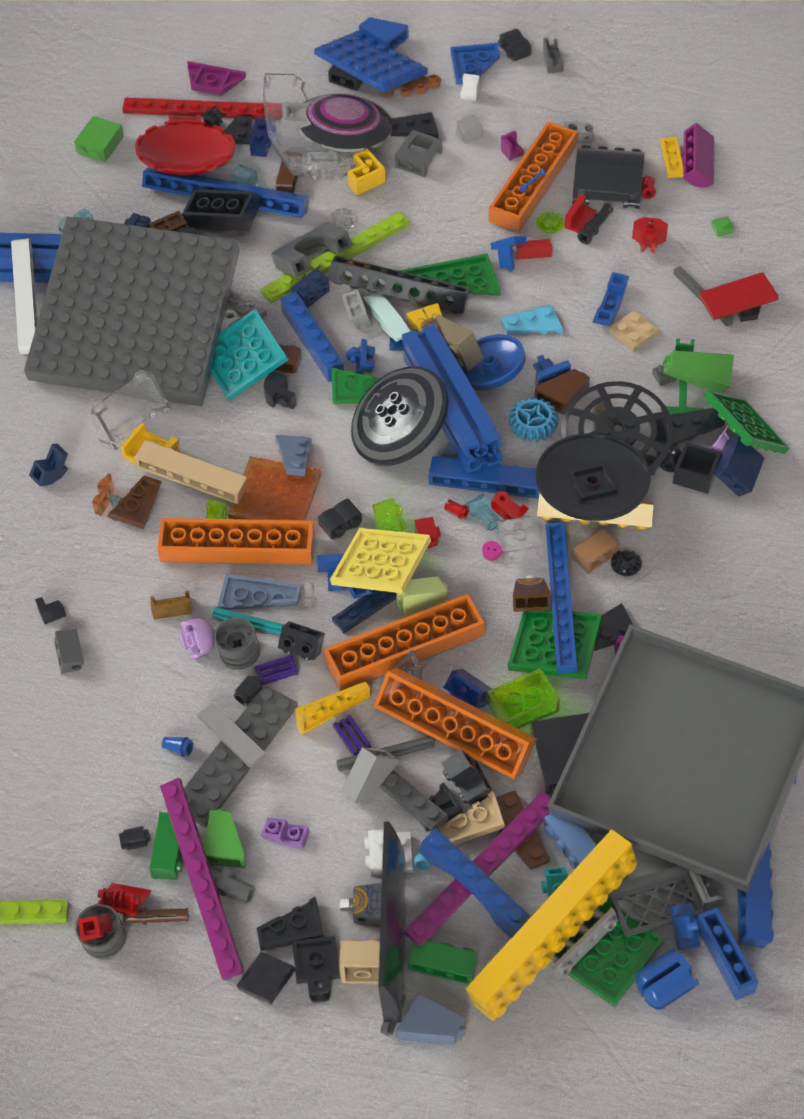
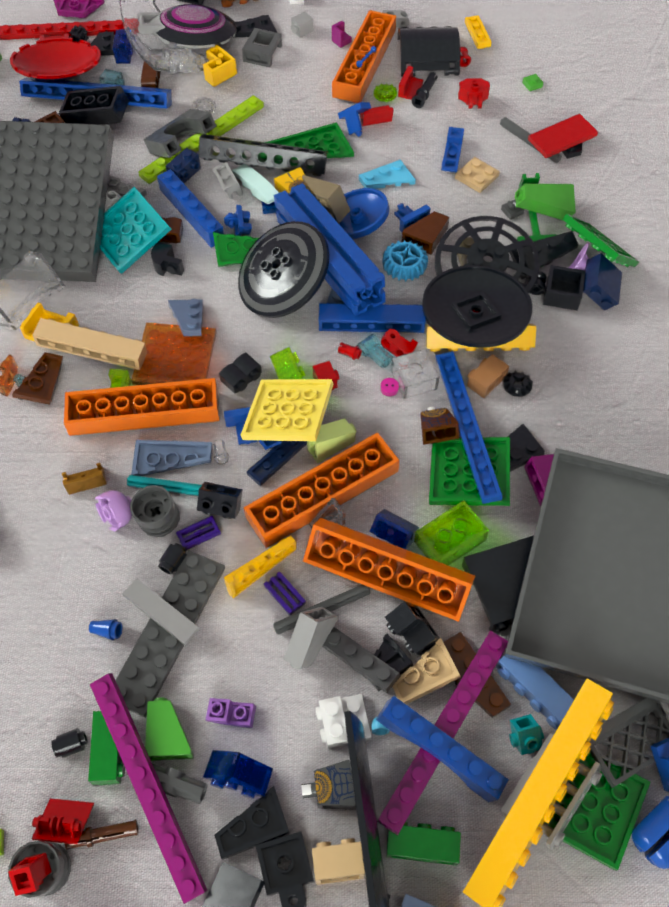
camera: 10 degrees left, 5 degrees up
(285, 877) = (239, 772): none -> clear blue brick
(698, 156) = (500, 29): magenta brick -> none

